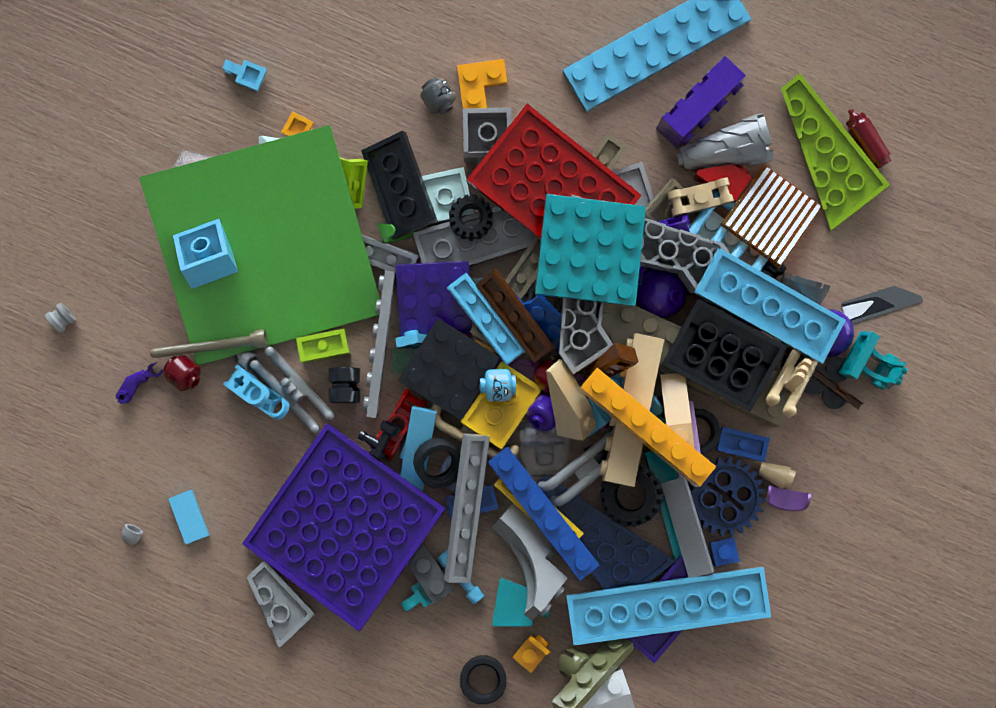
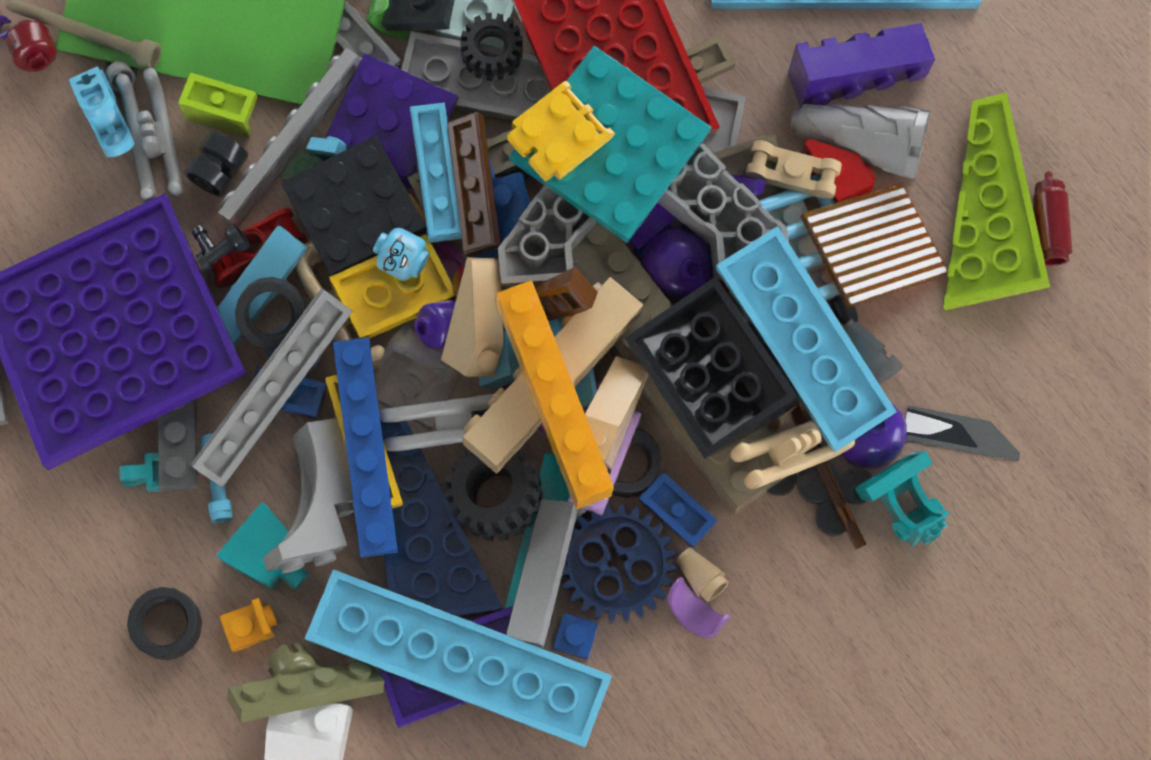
camera: 30 degrees right, 10 degrees down
(559, 264) = (558, 133): none -> yellow plate

